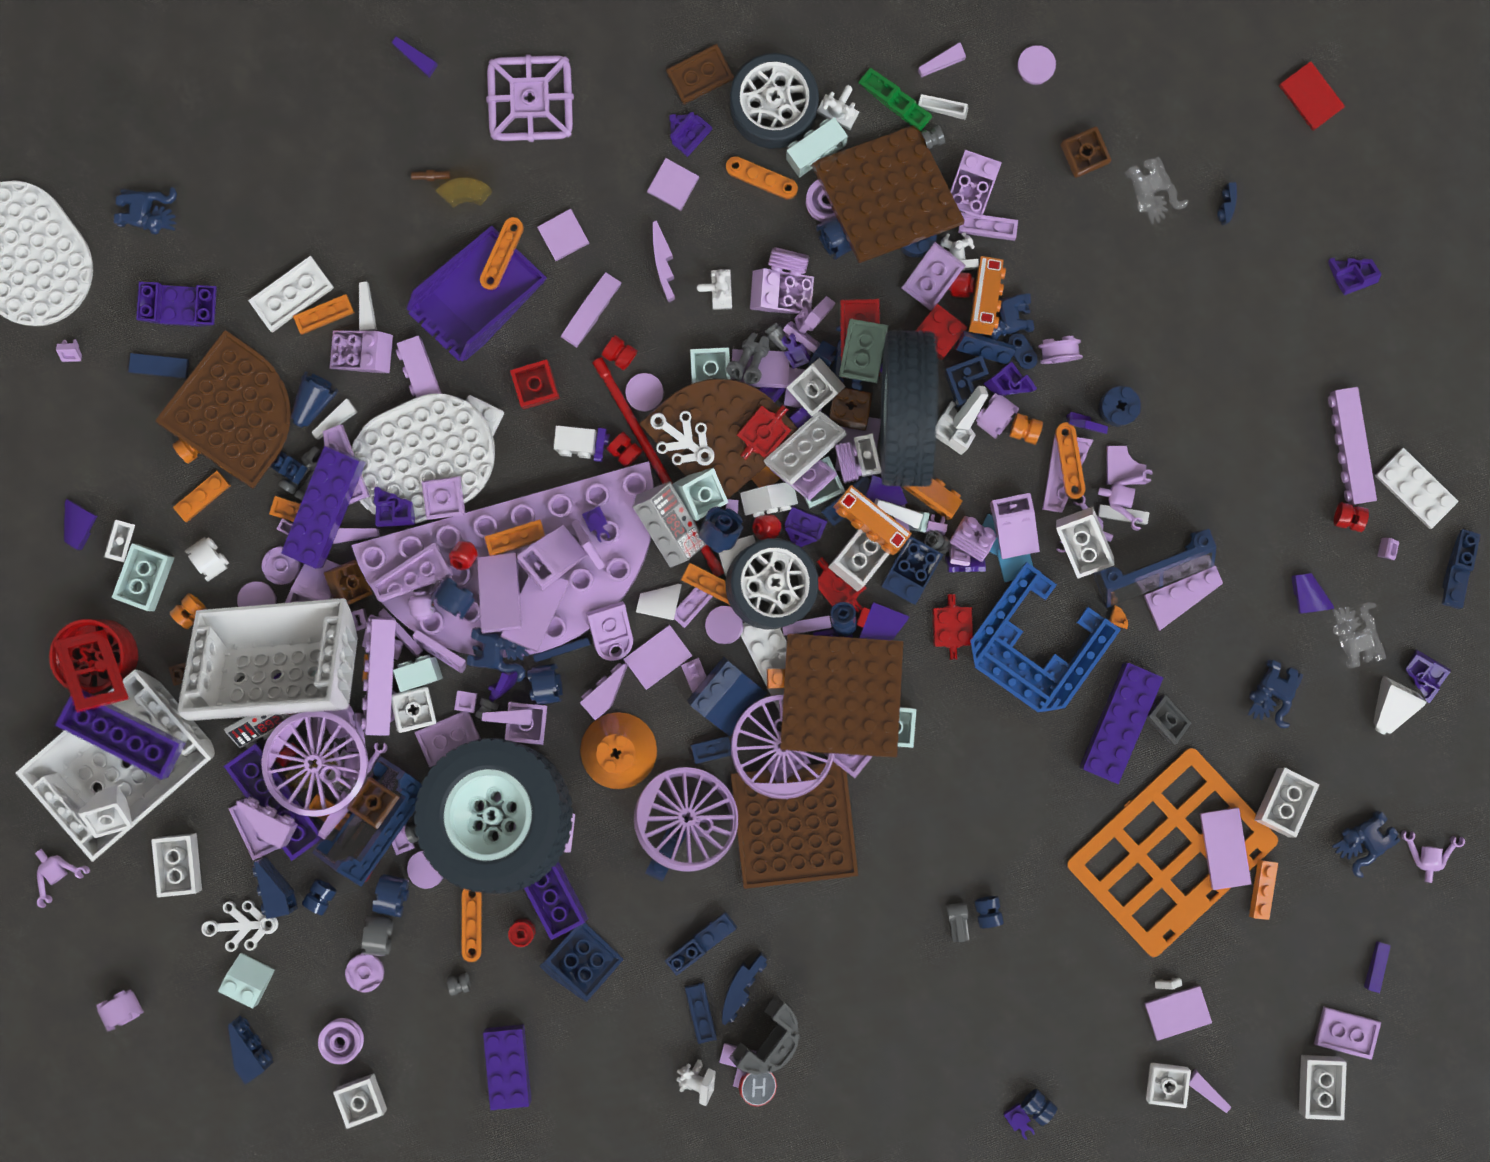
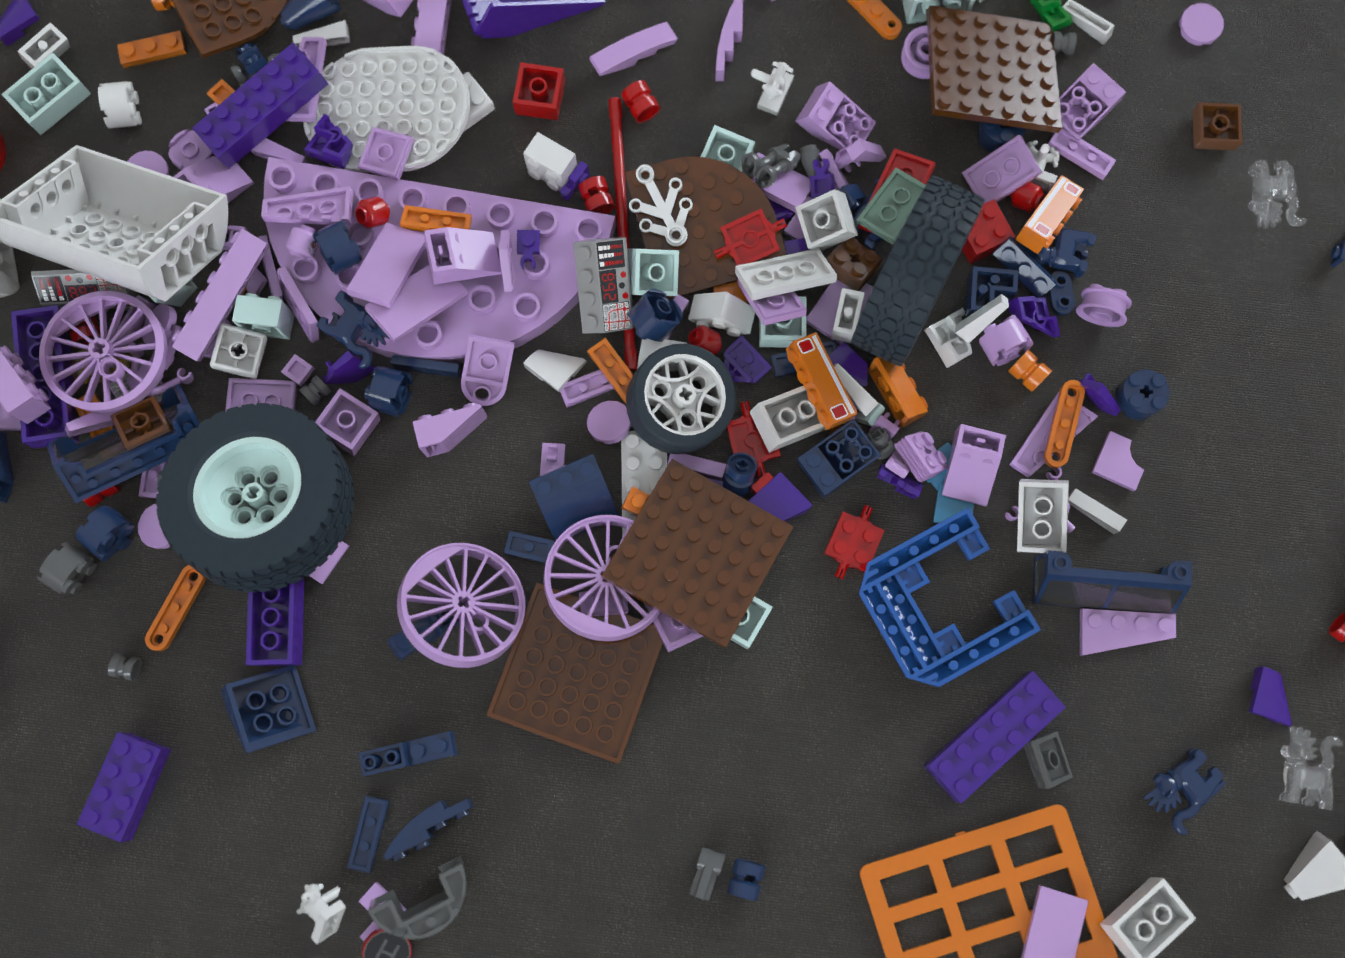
camera: 25 degrees right, 10 degrees down
(190, 604) = (61, 144): orange wheel -> none
(317, 903) = (29, 501): dark blue wheel -> none
(340, 576) = (252, 183): reddish brown brick -> none
(364, 972) = (34, 605): lavender tile -> none
(519, 717) = (337, 405): lavender piece -> none
(522, 932) = (221, 643): red wheel -> none
(625, 734) = (430, 501): orange cone -> none
(644, 392) = (645, 149): lavender tile -> none
(657, 657) = (522, 423): lavender tile -> none
(788, 260) = (858, 88): lavender brick -> none
(833, 237) = (916, 92): dark blue brick -> none
(849, 469) = (825, 305): lavender brick -> none
(1118, 617) = (1043, 619): orange tile -> none
(1123, 496) = (1103, 491): lavender piece -> none

